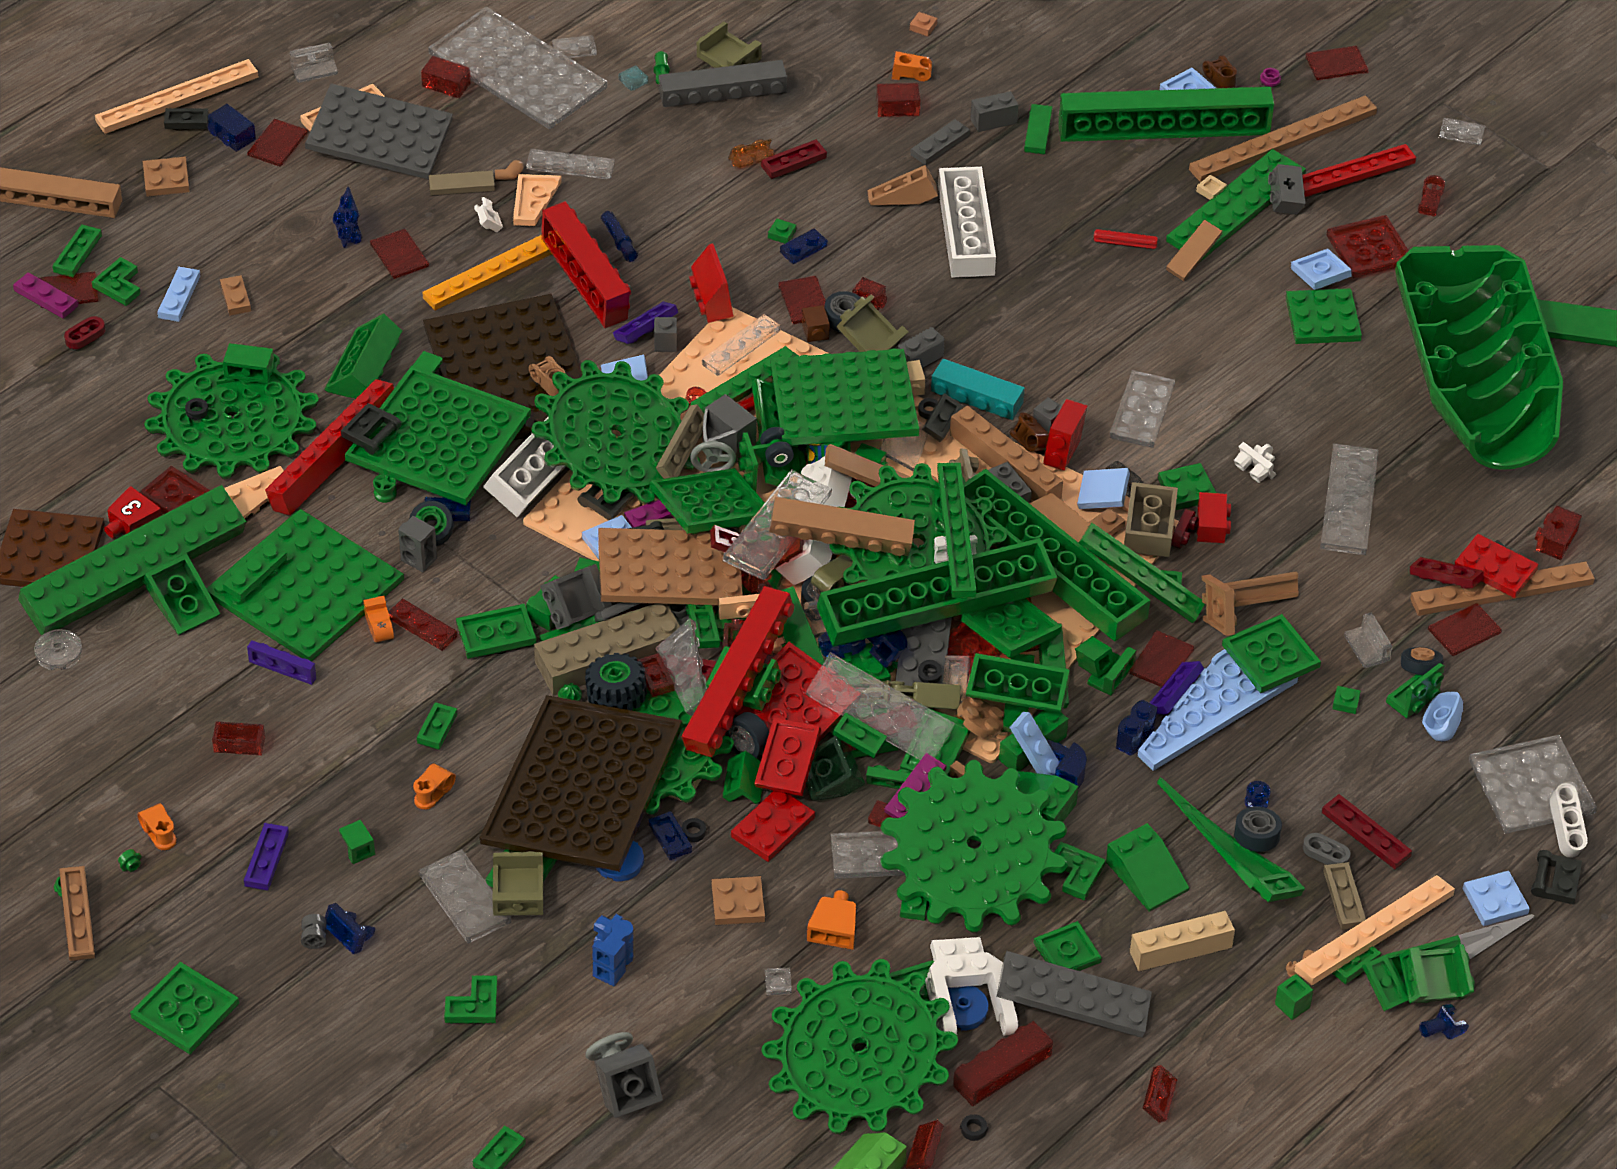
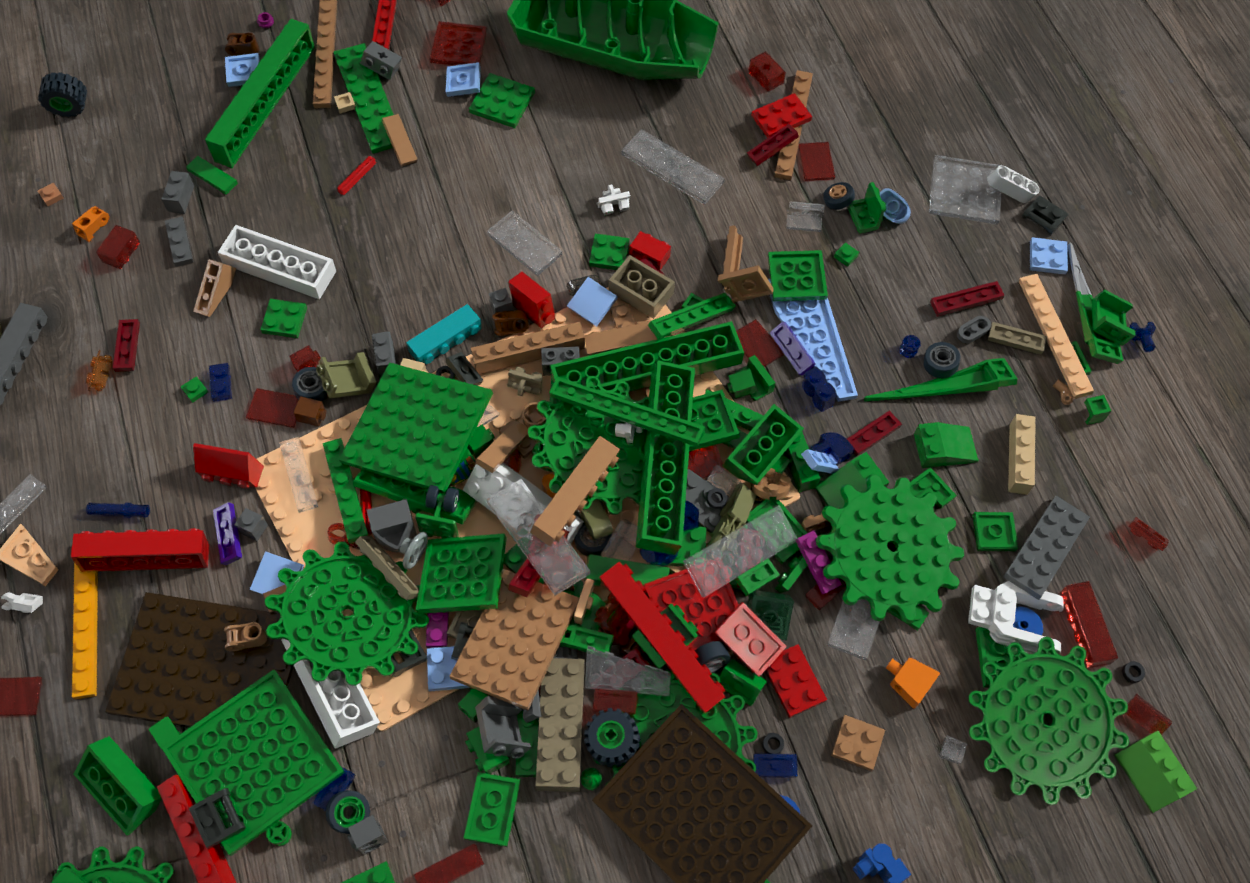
camera: 65 degrees left, 15 degrees up
(909, 260) = (283, 318): none -> green plate
(1115, 797) = (874, 432): none -> dark red plate

